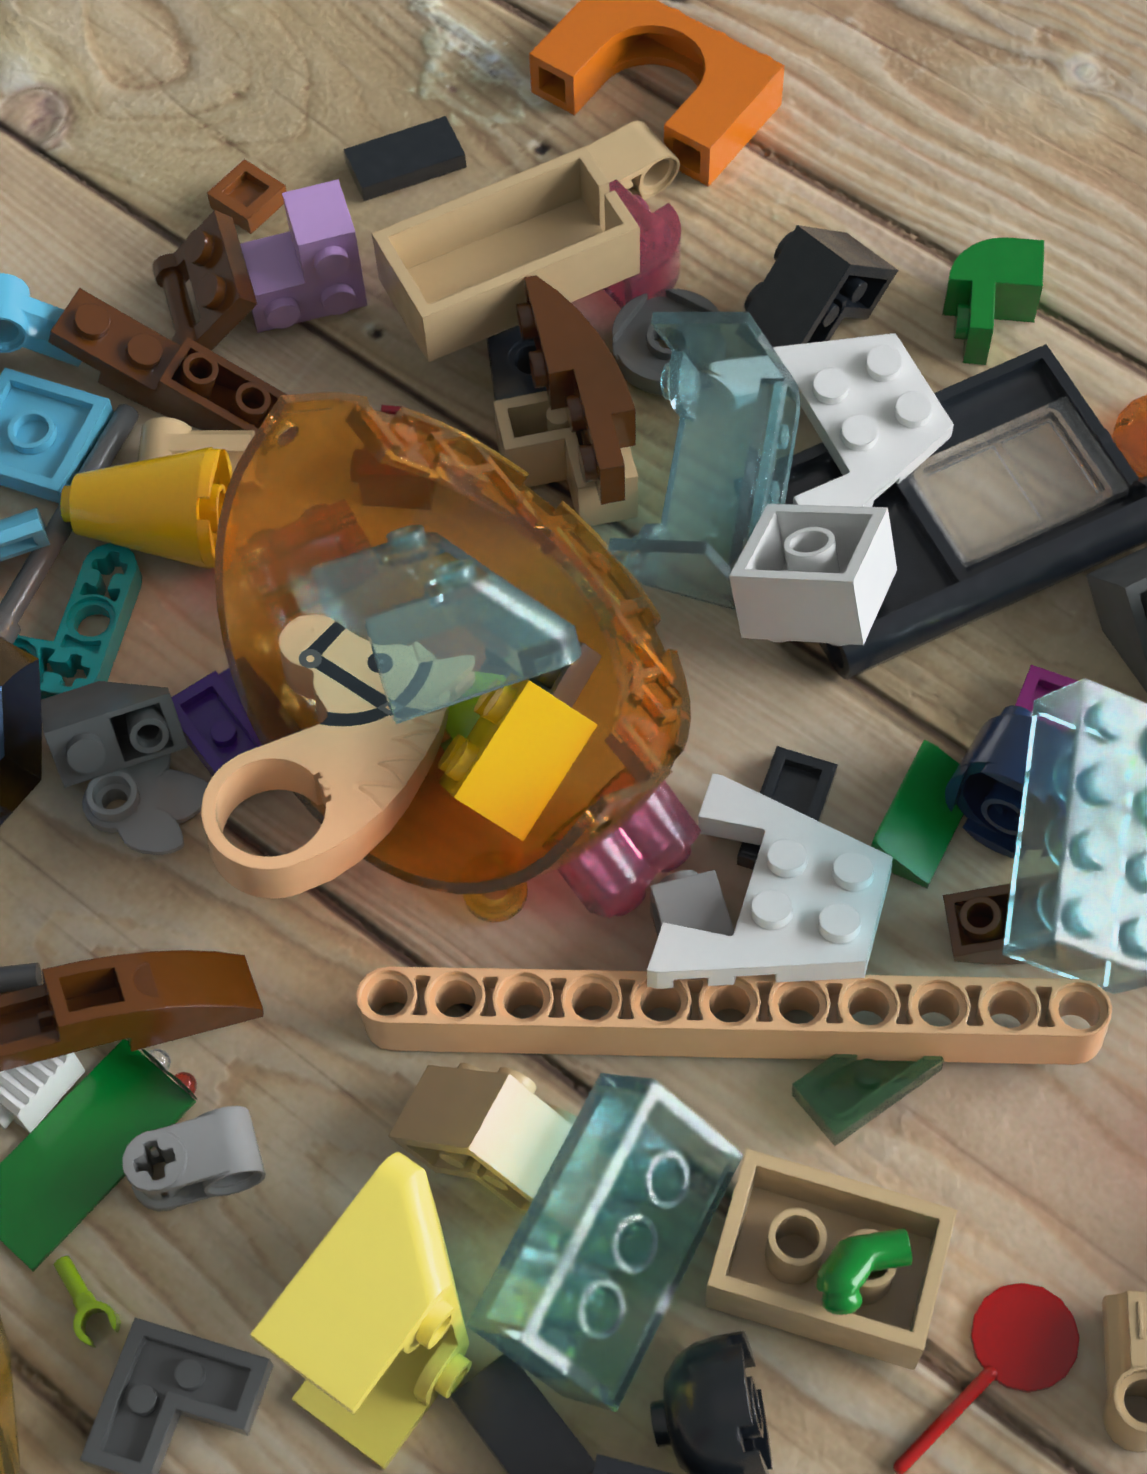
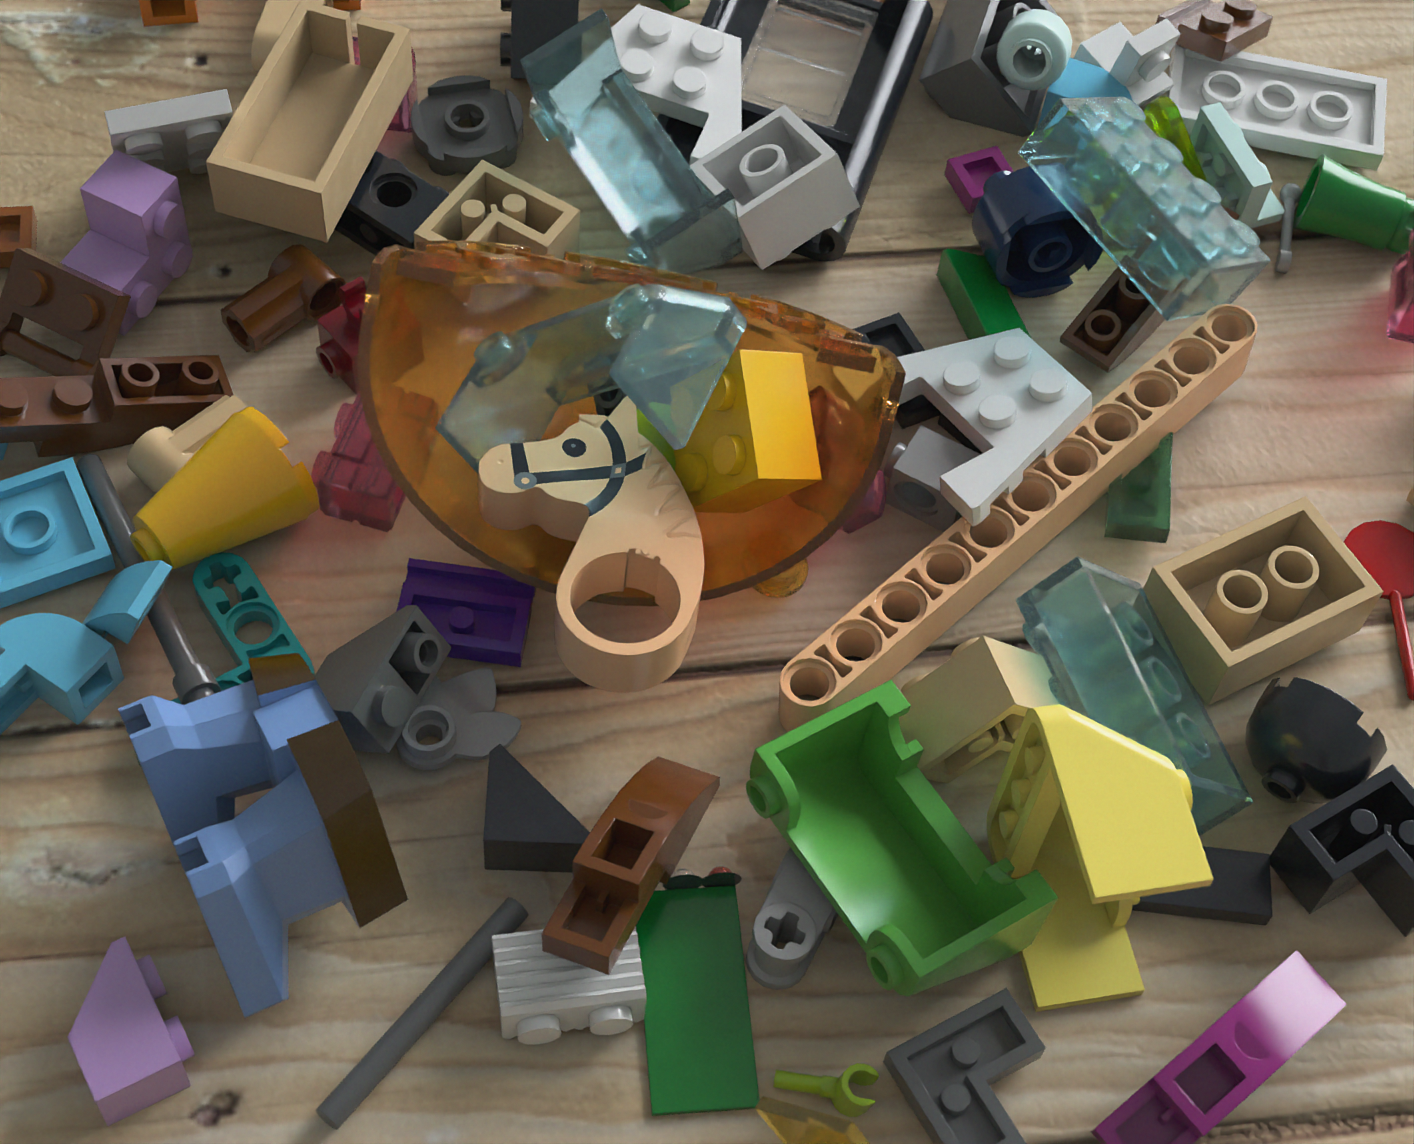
camera: 55 degrees left, 5 degrees down
(98, 905) = (525, 822): none -> black slope
(283, 1160) = (892, 848): none -> bright green windscreen
(382, 186) = (171, 131): none -> white plate
(397, 380) = (295, 289): none -> reddish brown piece
(405, 158) = (86, 139): black tile -> none
(584, 379) = (470, 158): reddish brown slope -> none
(853, 1262) = (1300, 574): green arm -> none

